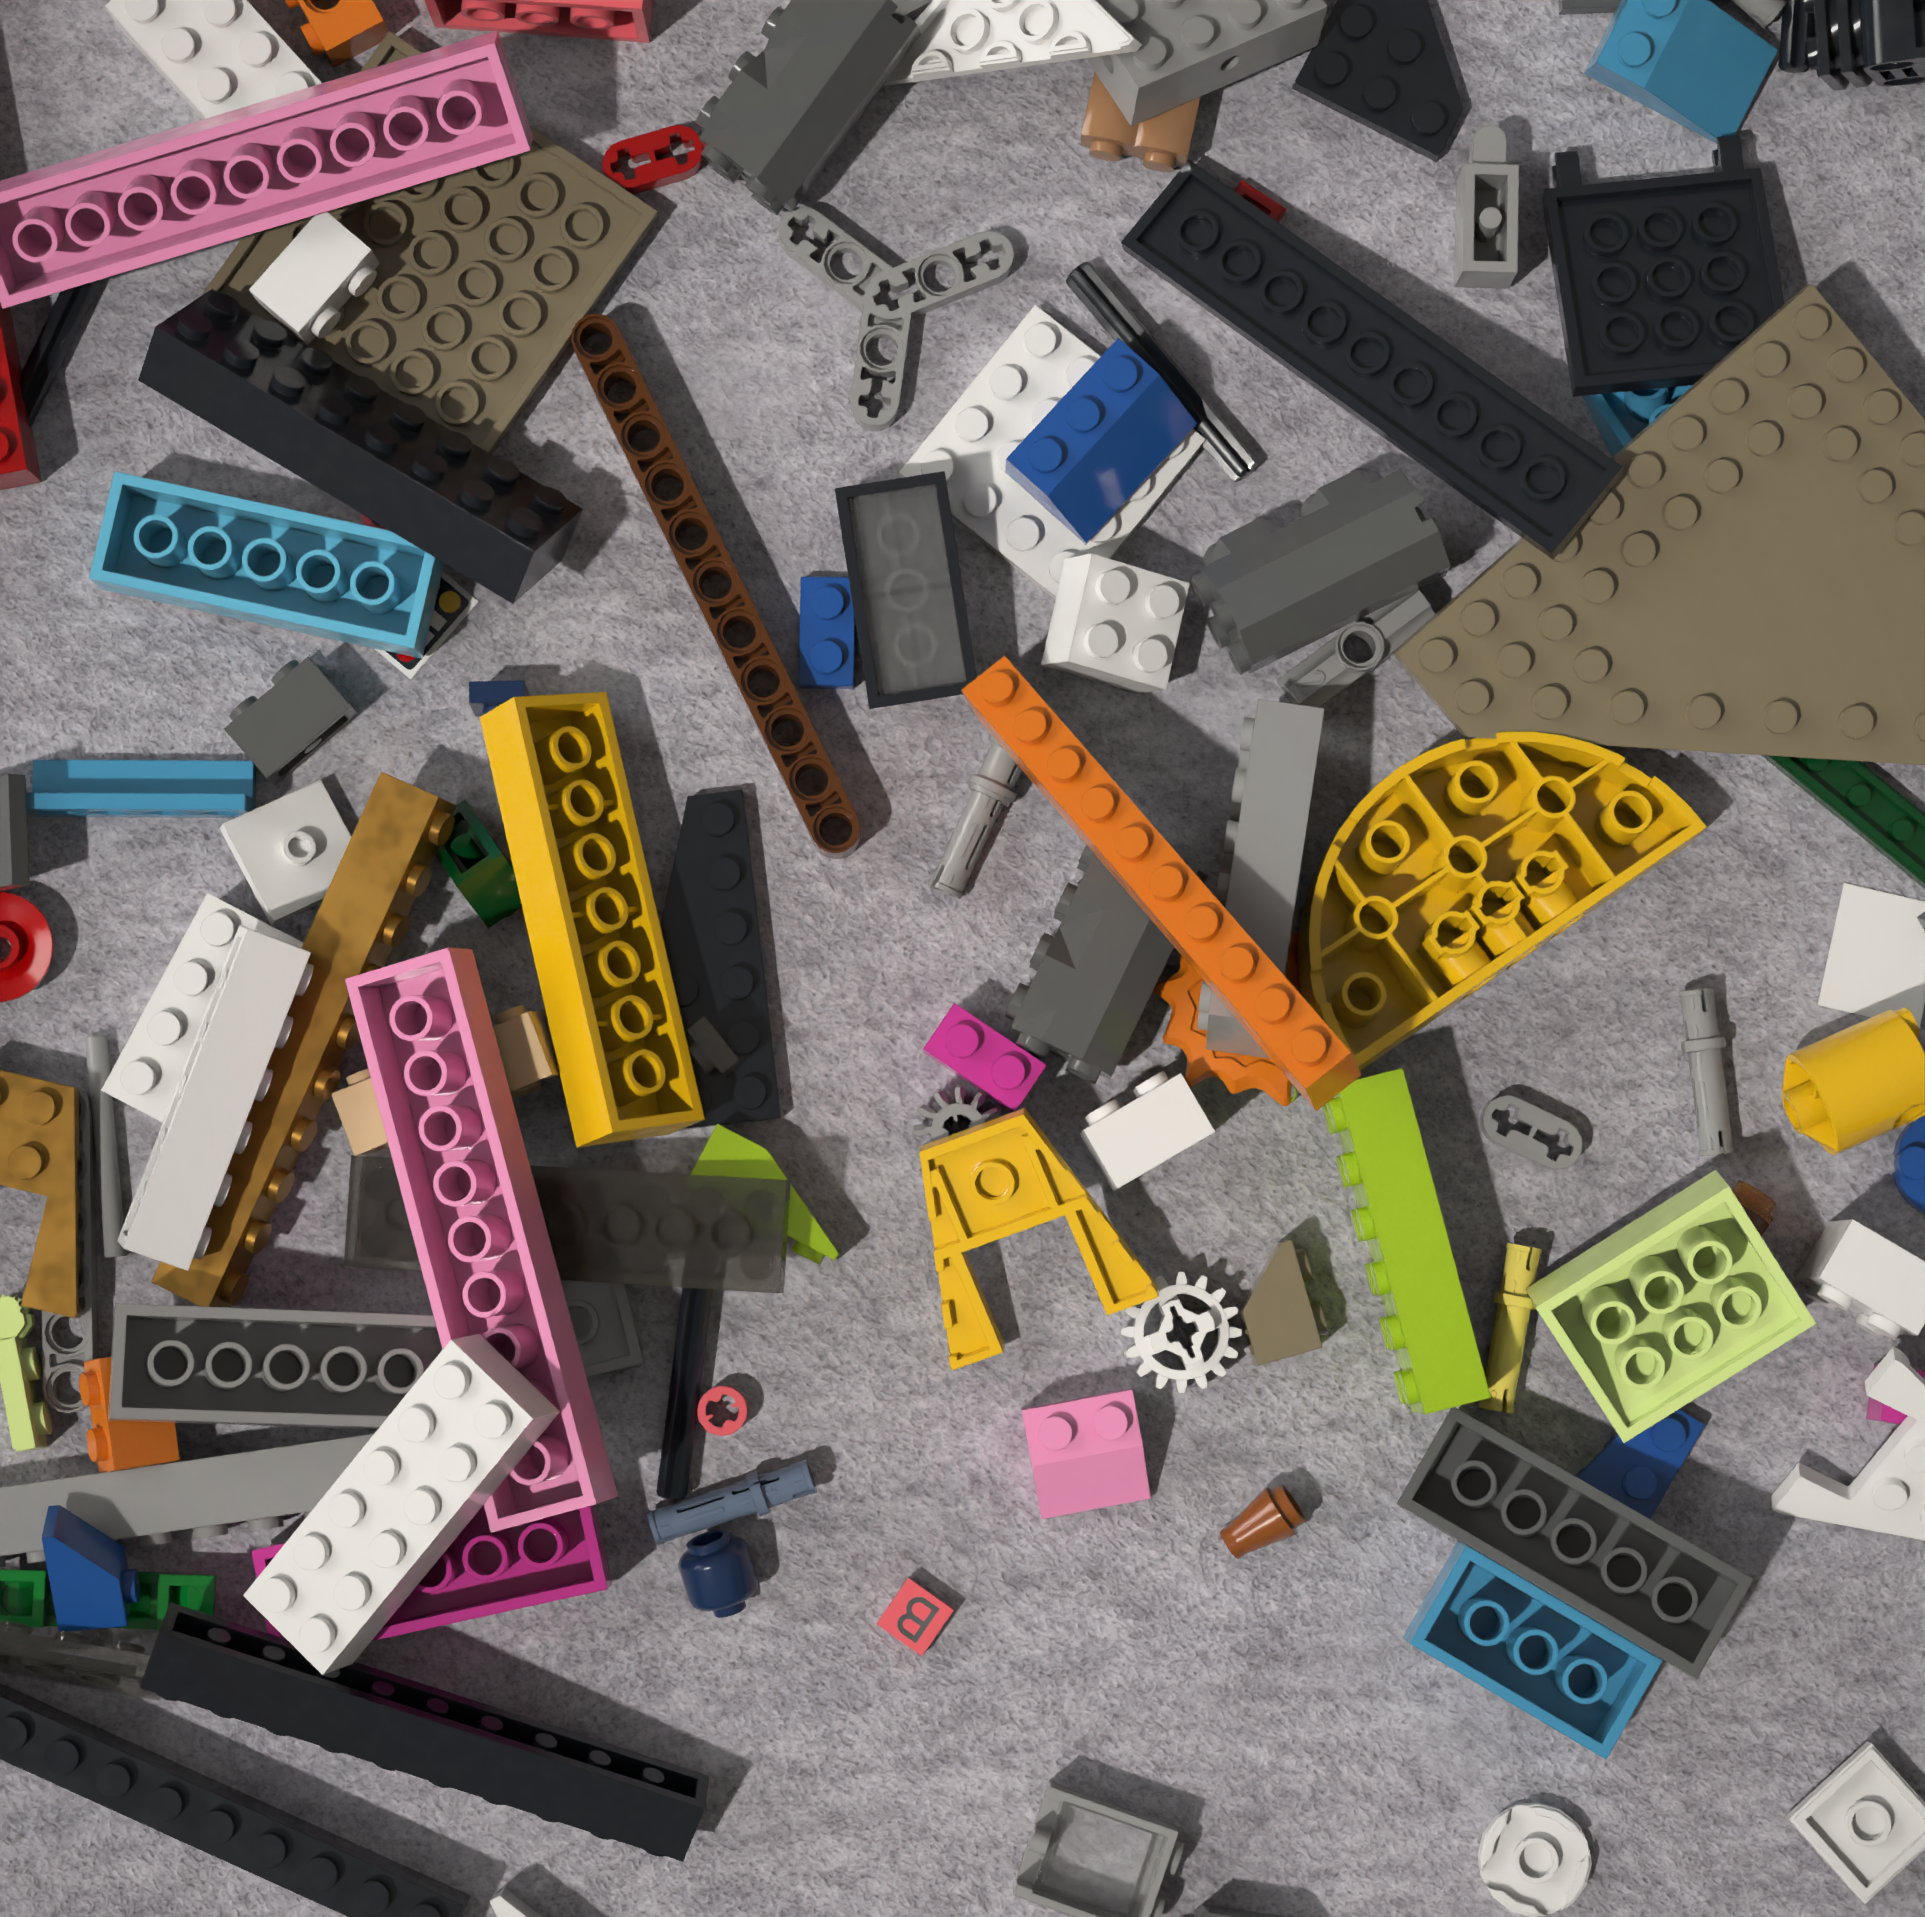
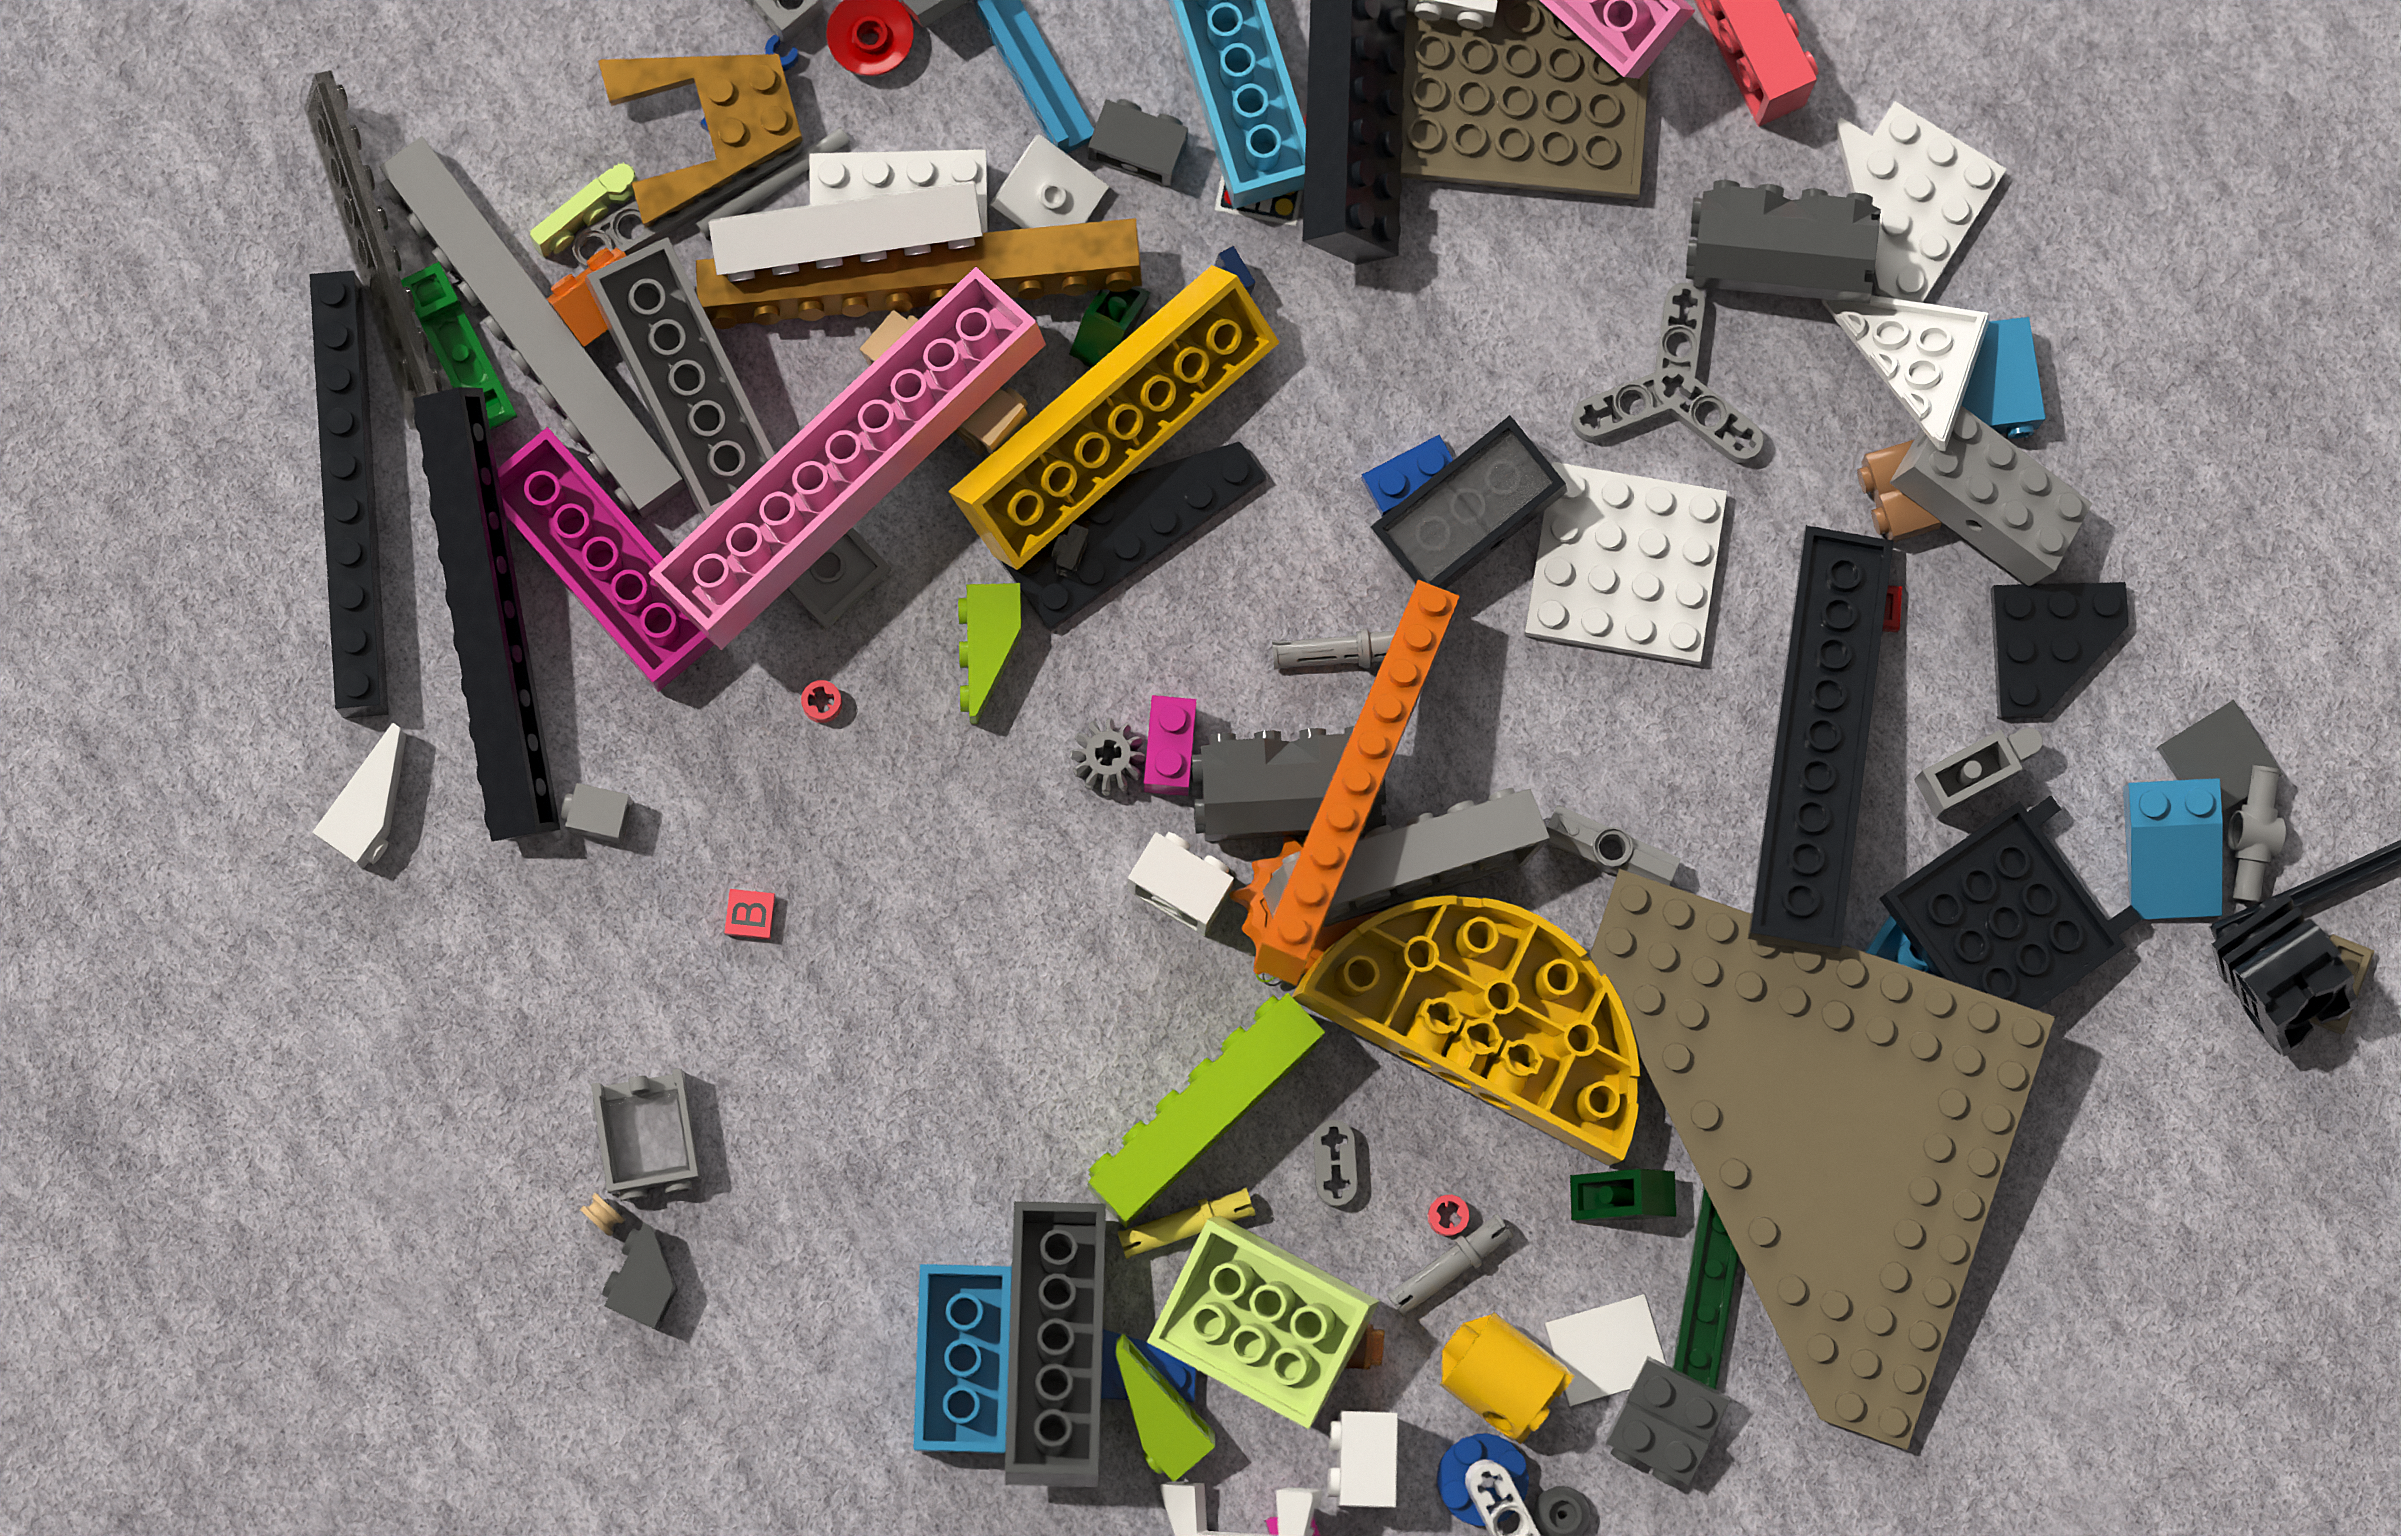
camera: 60 degrees right, 5 degrees down
(87, 1574) = (471, 325): blue slope -> none
(401, 1503) = (635, 500): white brick -> none
(609, 1226) = (909, 553): clear smoke plate -> none
(649, 147) = (1681, 165): red beam -> none
(684, 1393) = (843, 658): black axle -> none
(708, 560) = (1403, 359): reddish brown beam -> none
(712, 1725) = (597, 813): none -> light grey brick
(718, 1573) = (705, 758): dark blue head -> none
(743, 1498) = (773, 753): sand blue pin -> none
(998, 1184) = (1085, 798): yellow wing -> none
(1086, 1453) = (930, 969): bright pink slope -> none
(1100, 441) = (1653, 585): blue slope -> none
(1115, 623) = (1529, 666): white brick -> none
(1123, 324) = (1731, 605): black axle -> none
(1204, 1322) = (1038, 976): white gear -> none
(1263, 1522) = (951, 1122): dark orange cone -> none
(1278, 1310) = (1106, 1049): dark tan slope -> none
(1300, 581) = (1630, 774): dark grey brick -> none
(1534, 1859) = (815, 1448): white tile -> none
(1654, 1027) = (1434, 1217): none -> coral bush
(1722, 1468) = (1167, 1424): none -> lime slope
(1733, 846) = (1623, 1195): none -> dark green slope

